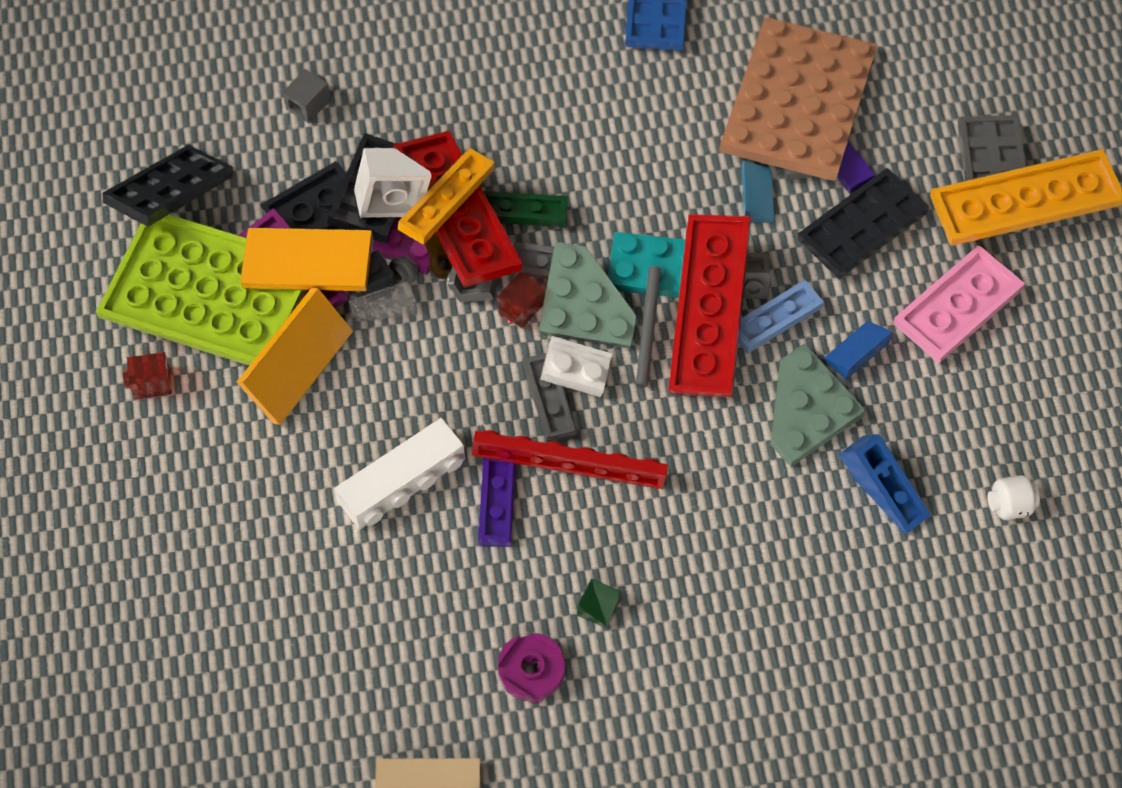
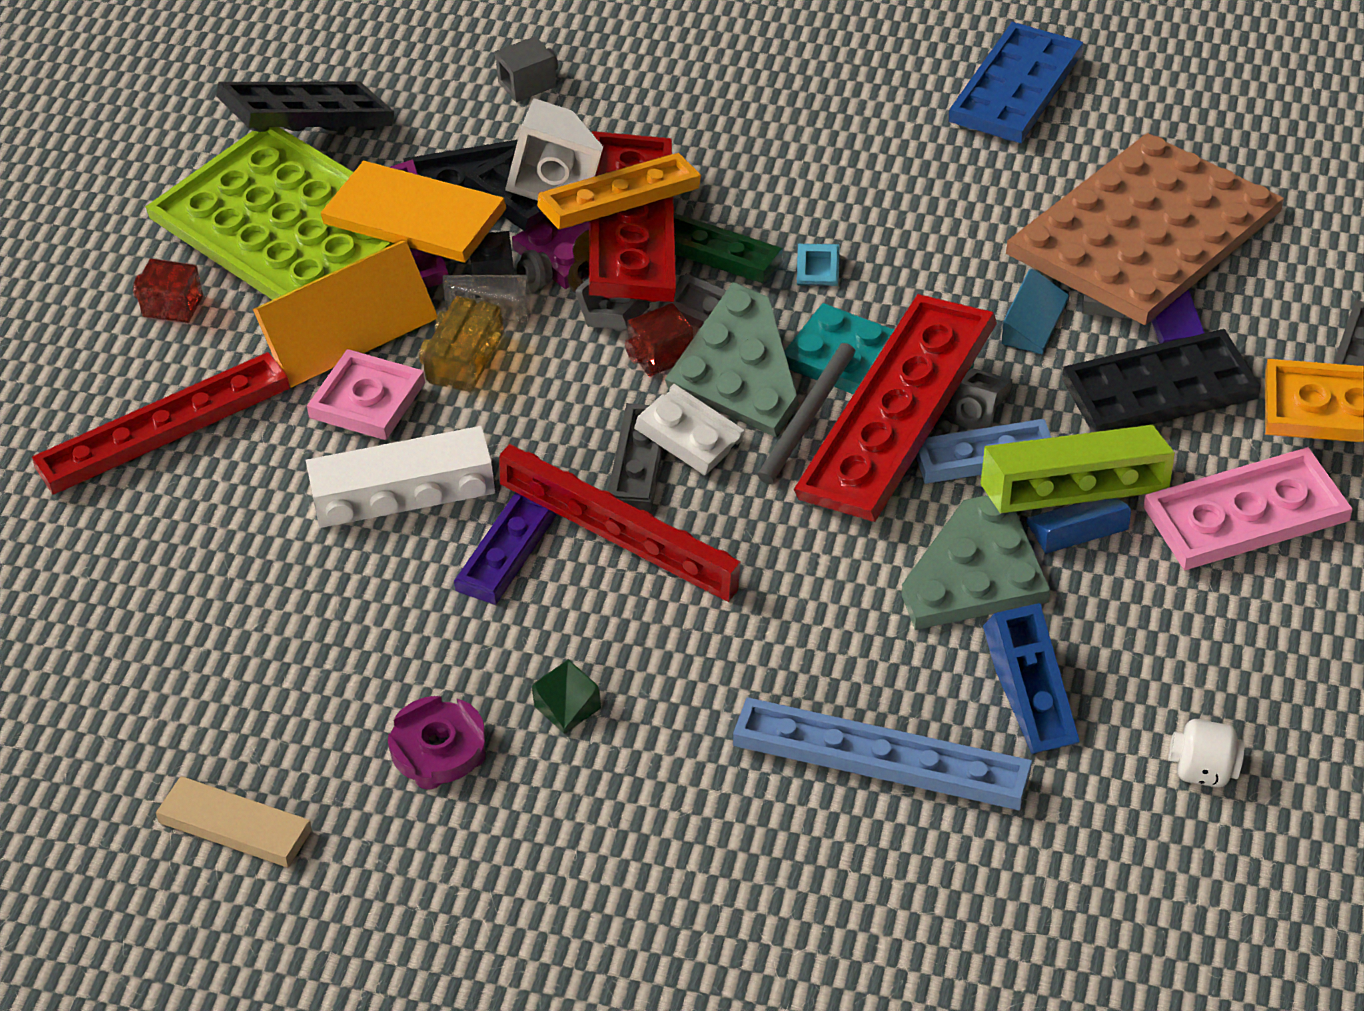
camera: 25 degrees right, 15 degrees down
(204, 488) = (160, 423): none -> red plate
(339, 413) = (366, 394): none -> bright pink plate
(385, 349) = (462, 343): none -> clear yellow brick
(594, 199) = (818, 264): none -> medium azure slope
(817, 570) = (883, 753): none -> medium blue plate
(845, 314) = (1076, 468): none -> lime brick

